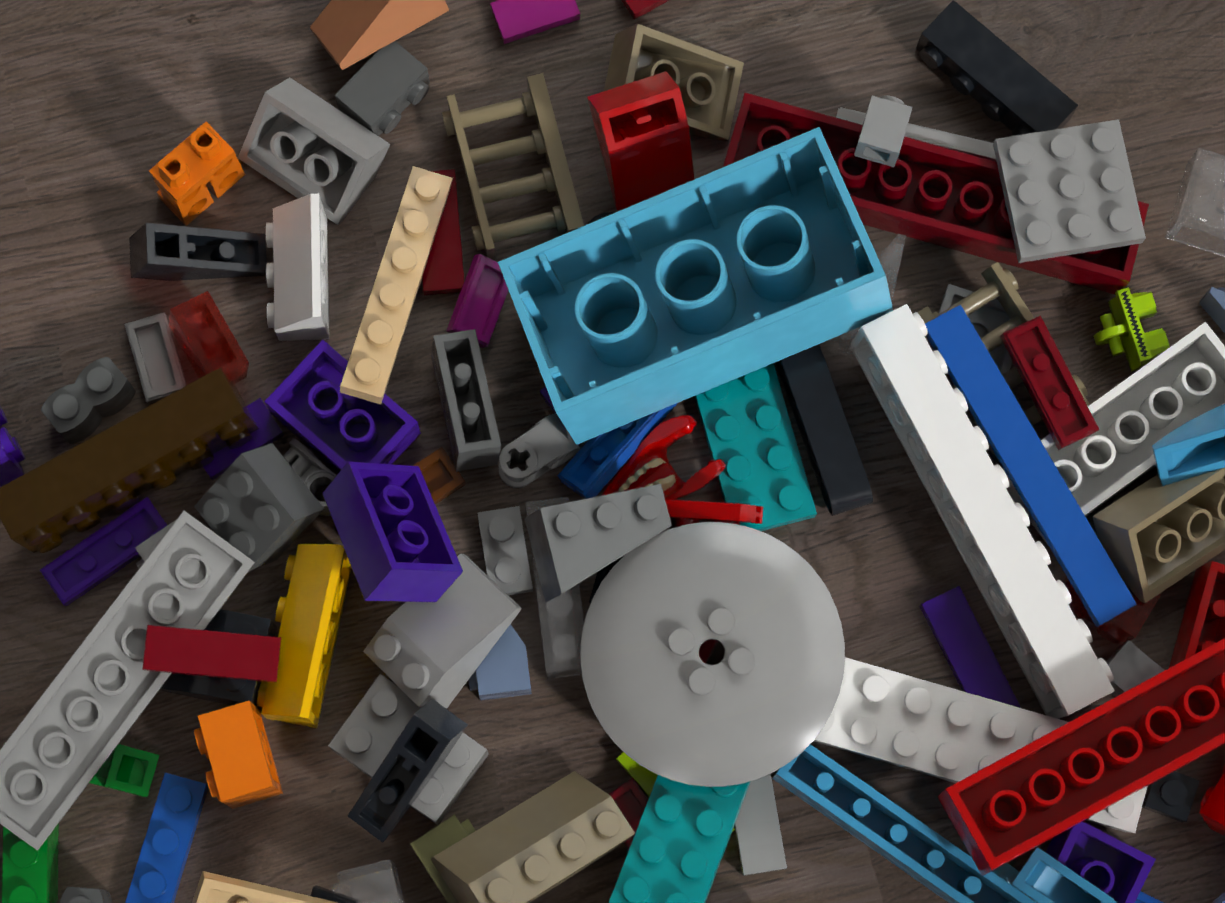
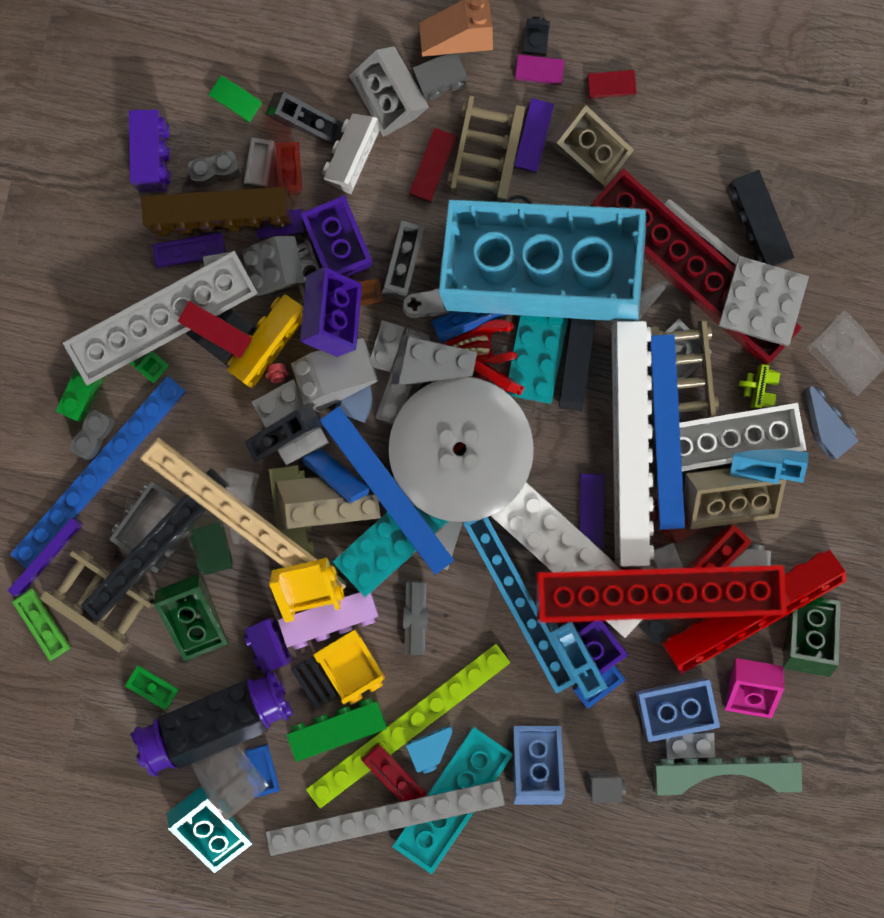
camera: 30 degrees right, 10 degrees up
(70, 275) = (235, 98): none -> green slope
(194, 167) = (322, 71): orange hips -> none
(238, 755) = (206, 385): orange brick -> none
(346, 680) = (277, 373): none -> coral plate
(396, 285) = (396, 184): tan plate -> none
(480, 300) = (434, 212): magenta tile -> none
(527, 799) = (336, 475): none -> blue tile
(570, 87) = (534, 135): none -> dark purple tile
(625, 782) = (386, 490): none -> blue tile
(643, 138) = (558, 167): red slope -> none
(883, 130) = (683, 223): light grey brick -> none
(1049, 382) = (700, 395): dark red tile -> none

